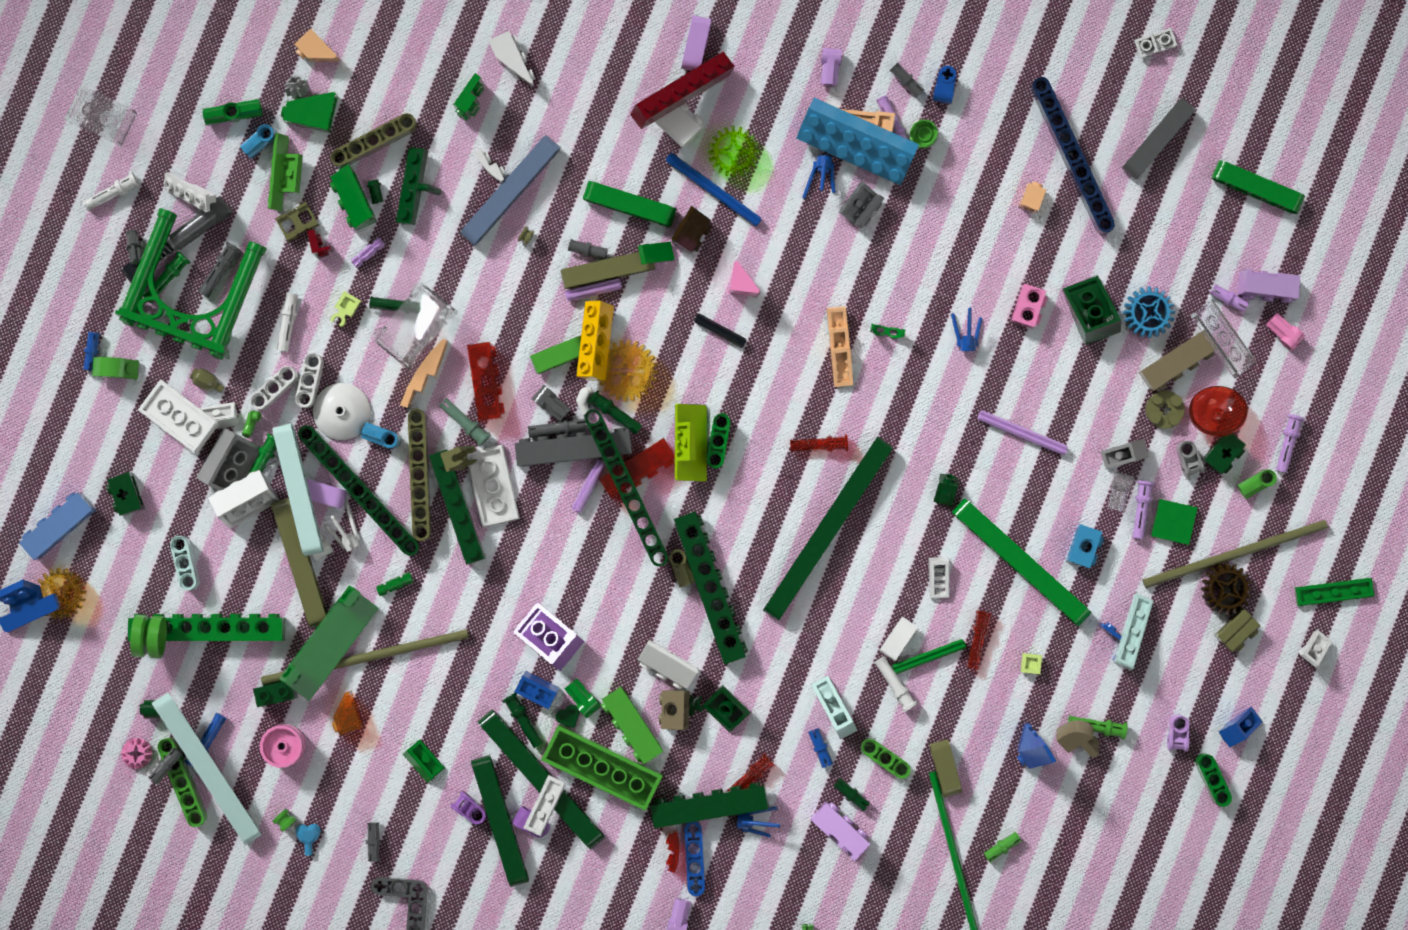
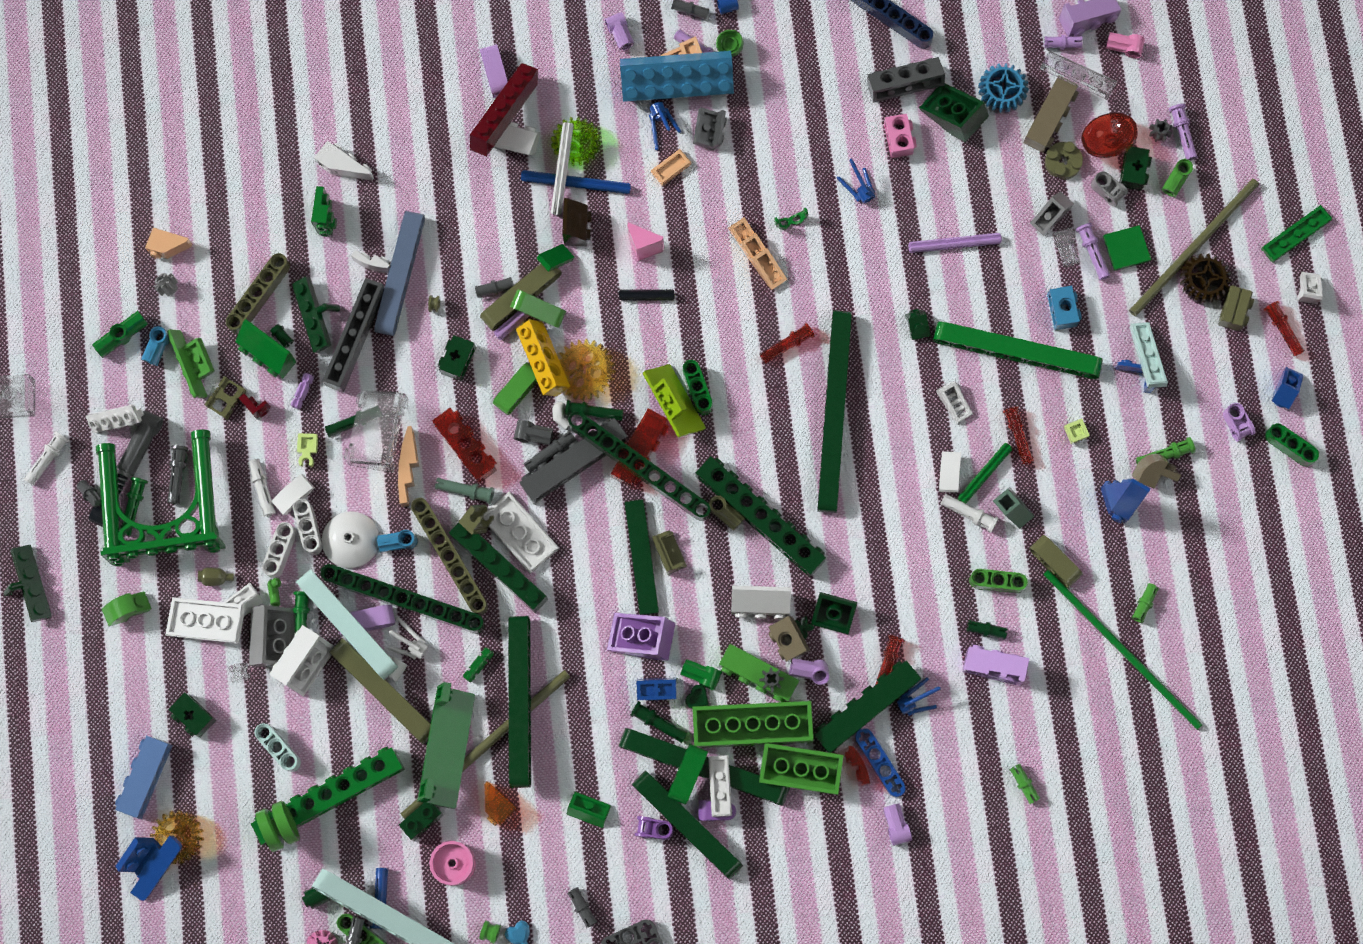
camera: 30 degrees left, 10 degrees down
(42, 299) = (30, 583): none -> dark green plate
(91, 350) = (96, 605): blue pin -> none
(185, 478) = (239, 672): none -> clear wheel
(311, 112) = (190, 298): green slope -> none
(311, 343) = (295, 490): none -> white slope
(412, 637) = (519, 701): none -> dark green beam
(439, 227) = (354, 335): none -> dark grey brick
(517, 307) = (457, 368): none -> dark green brick
(522, 780) = (687, 774): none -> green beam
(587, 566) = (641, 557): none -> dark green tile
(589, 486) = (605, 487): lavender axle -> none
(613, 575) = (669, 552): none -> olive hinge
(615, 293) = (538, 308): none -> bright green beam
(622, 828) = (801, 768): none -> bright green slope
(629, 204) = (510, 230): green beam -> none
(635, 744) = (771, 673): none -> dark grey gear
(683, 750) = (809, 670): none -> lavender piece
(706, 172) = (562, 167): none -> white axle
(806, 222) = (671, 167): none -> light nougat tile
(820, 747) = (936, 603): blue pin -> none
(834, 707) = (929, 561): light aqua slope -> none
(935, 701) = (1013, 508): none -> sand green slope
(1032, 197) = (850, 47): light nougat brick -> none
(1055, 260) = (905, 79): none -> dark grey brick
(1263, 428) = (1157, 135): none -> dark grey gear
(1270, 662) = (1280, 320): none -> clear red pin

